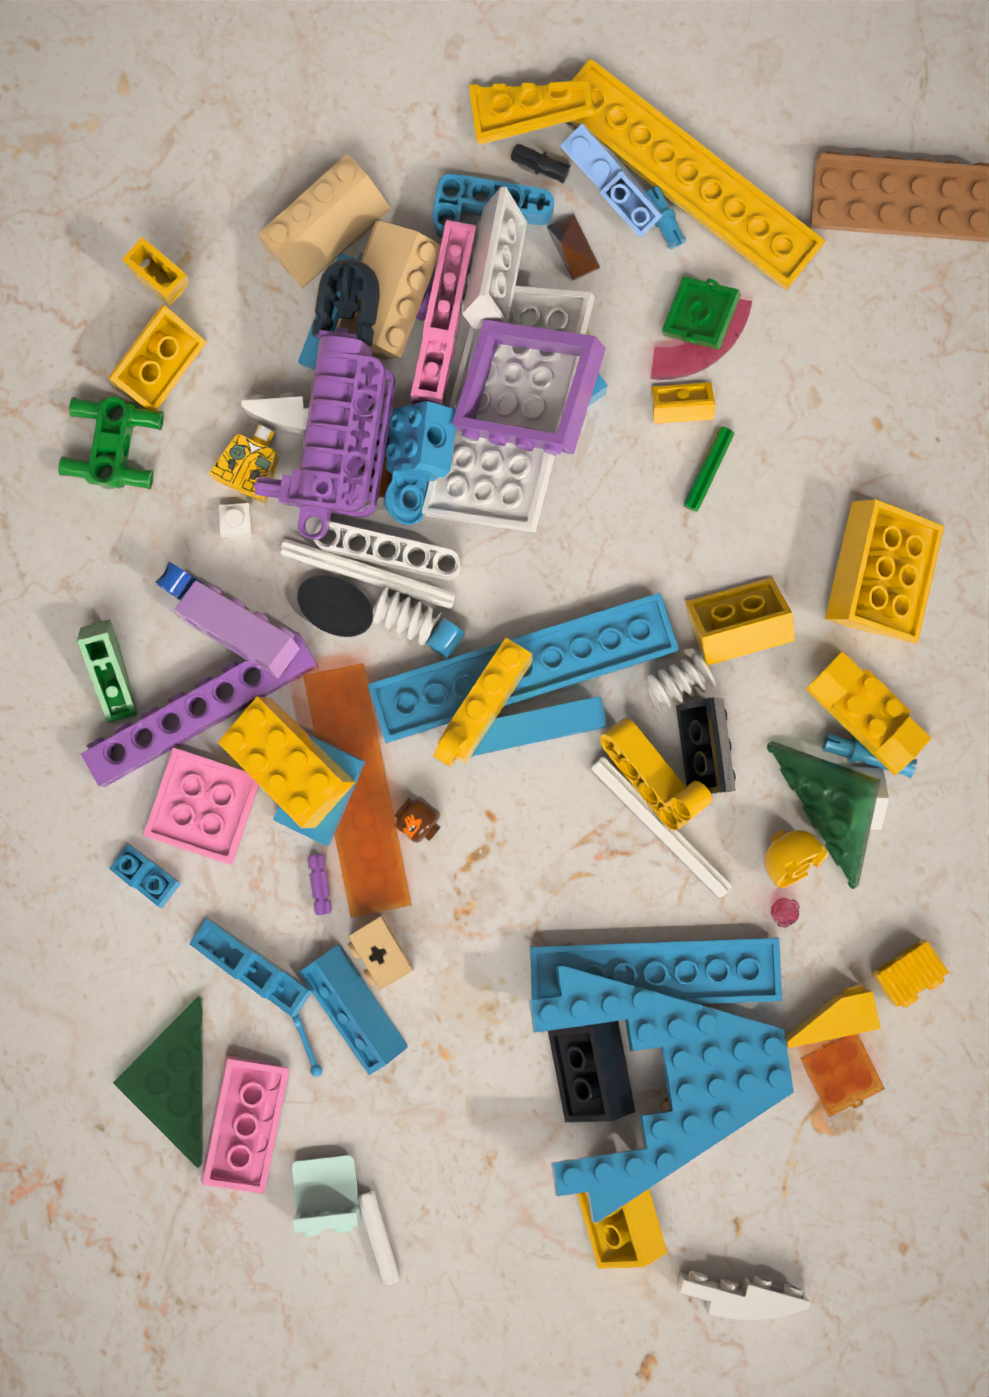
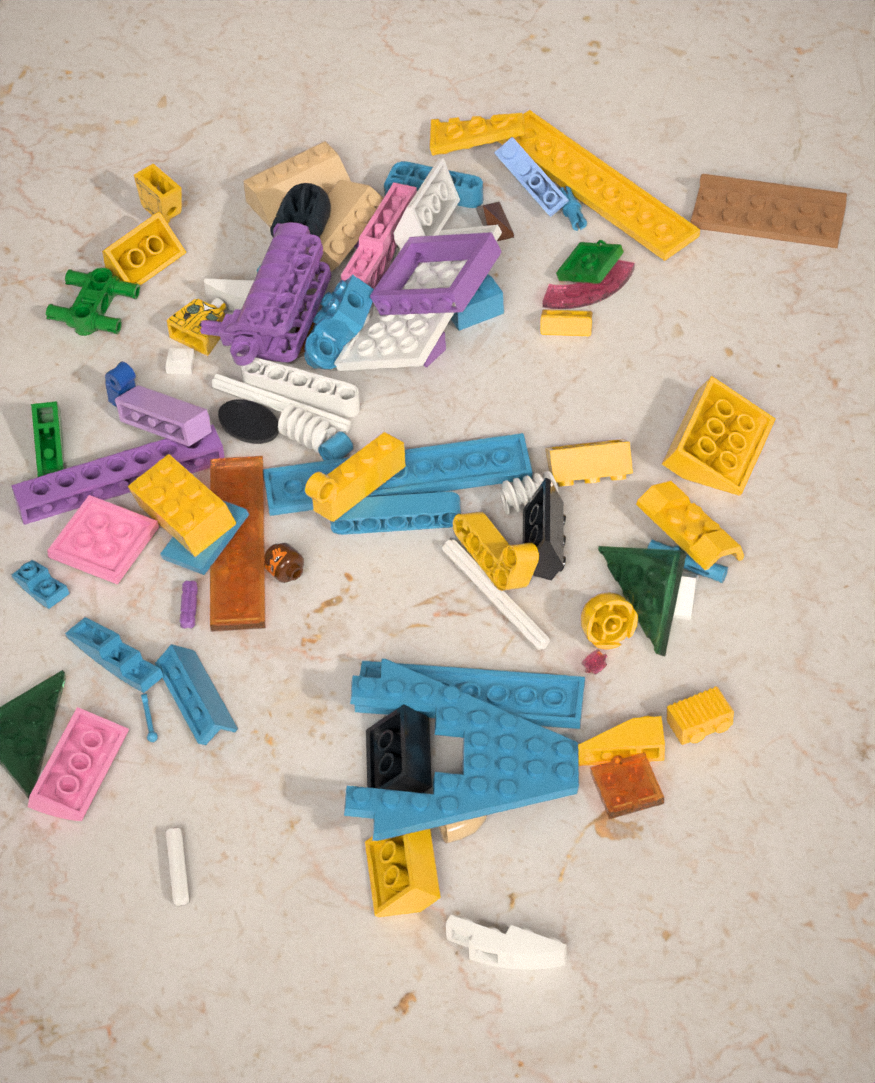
camera: 10 degrees right, 35 degrees down
(325, 1195) = (137, 824): light aqua bracket -> none
(395, 960) = (230, 653): tan brick -> none
(540, 163) = (478, 168): black axle -> none
(709, 469) = (580, 363): green axle -> none

